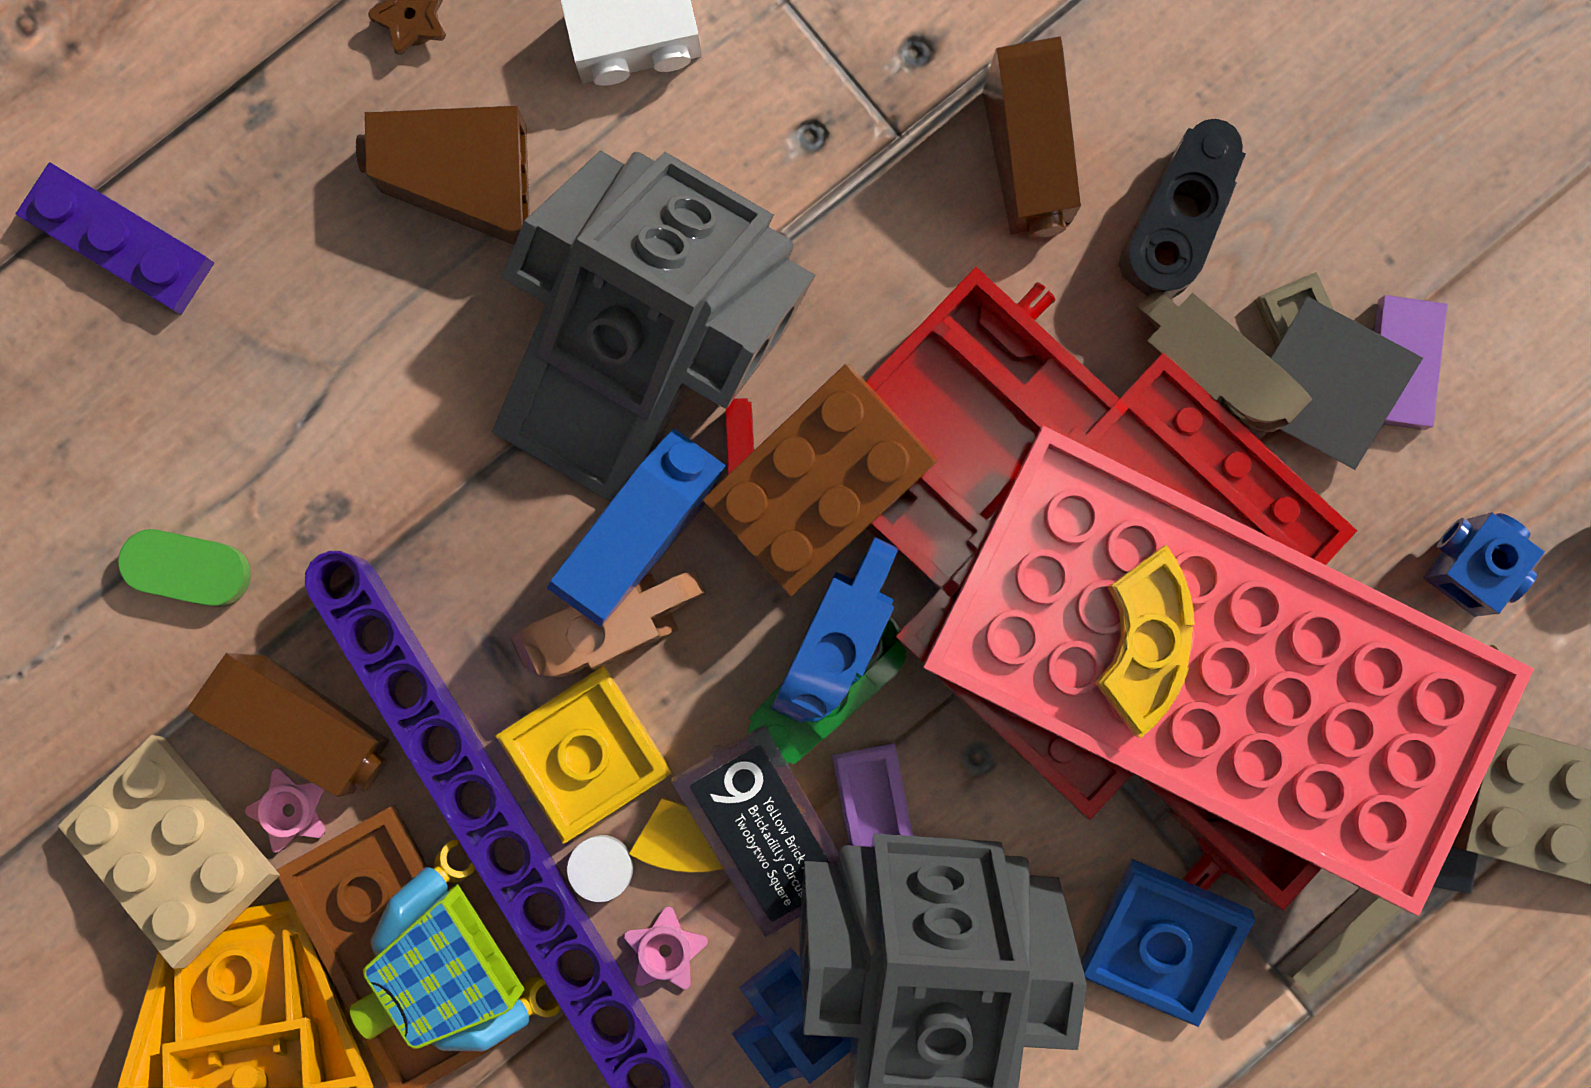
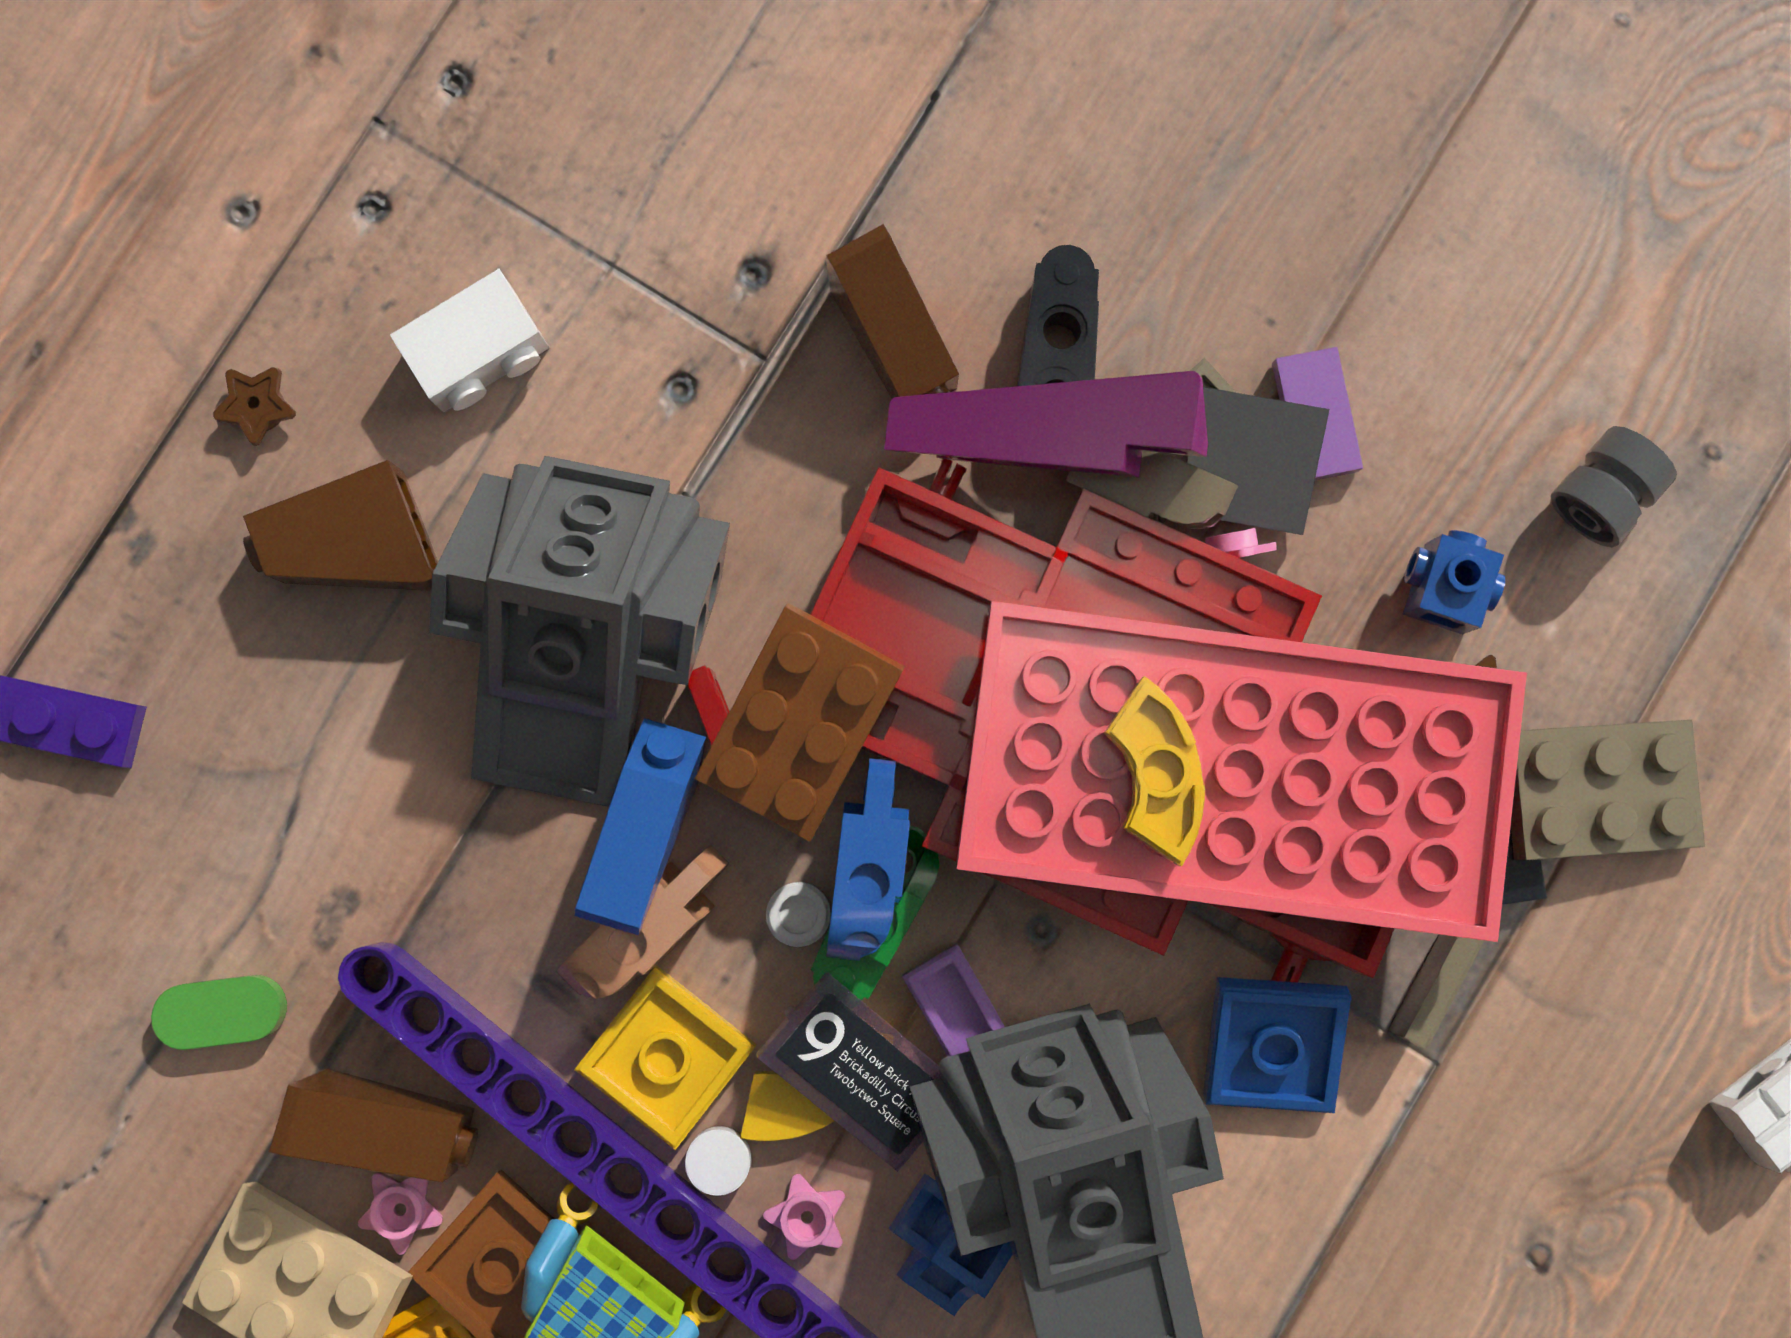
camera: 20 degrees left, 0 degrees up
(754, 663) = (798, 914): none -> white tile
(1162, 283) = (1057, 426): none -> magenta wedge
(1295, 457) = (1240, 543): none -> bright pink plate

